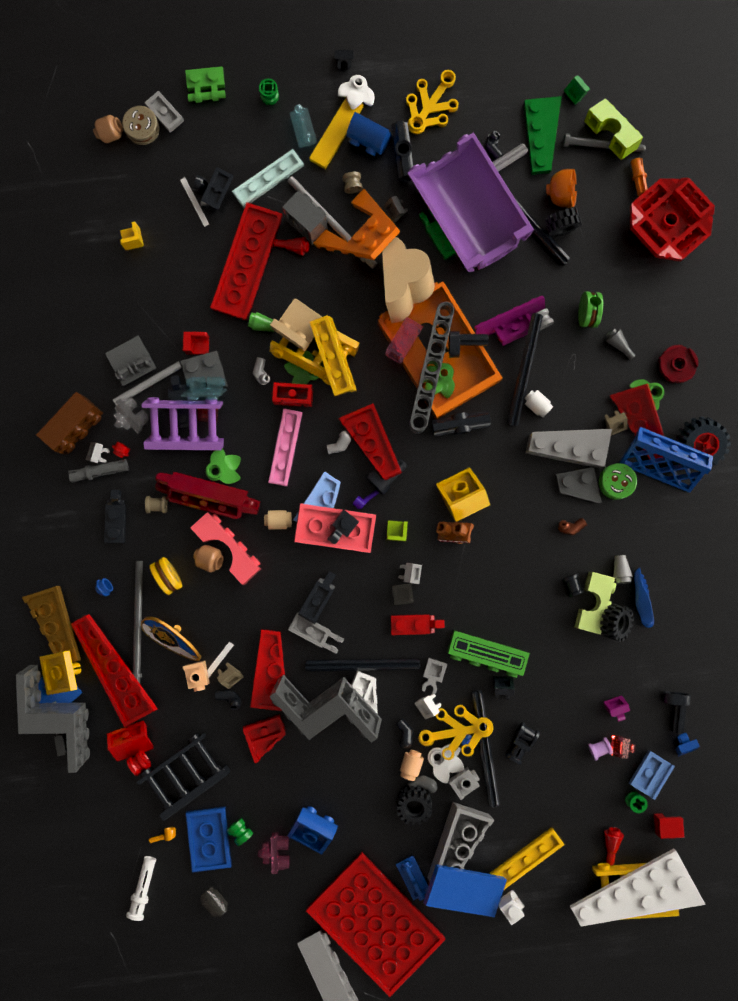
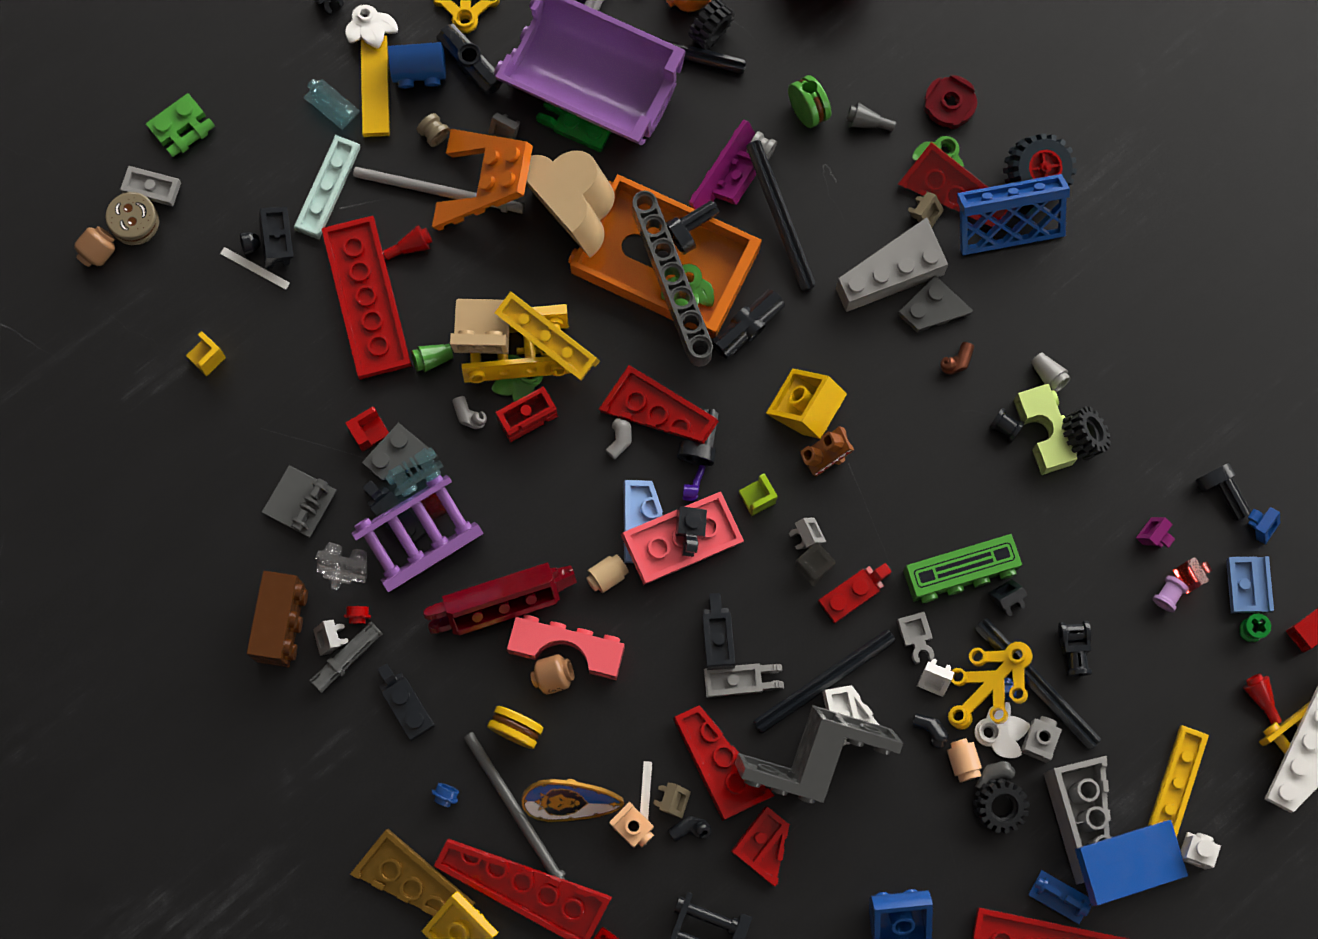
camera: 35 degrees left, 10 degrees down
(149, 382) = (339, 512): light grey bar -> none
(156, 504) = (445, 651): dark tan bush -> none
(225, 465) = (500, 552): bright green plate -> none
(268, 91) = (266, 93): green wheel -> none
(285, 447) = (557, 485): bright pink tile -> none
(305, 216) = (405, 201): dark grey brick -> none
(403, 340) = (618, 267): clear pink brick -> none
(538, 403) = (822, 244): white brick -> none
(617, 481) = (974, 274): bright green head -> none
(642, 599) = (1099, 389): blue animal -> none

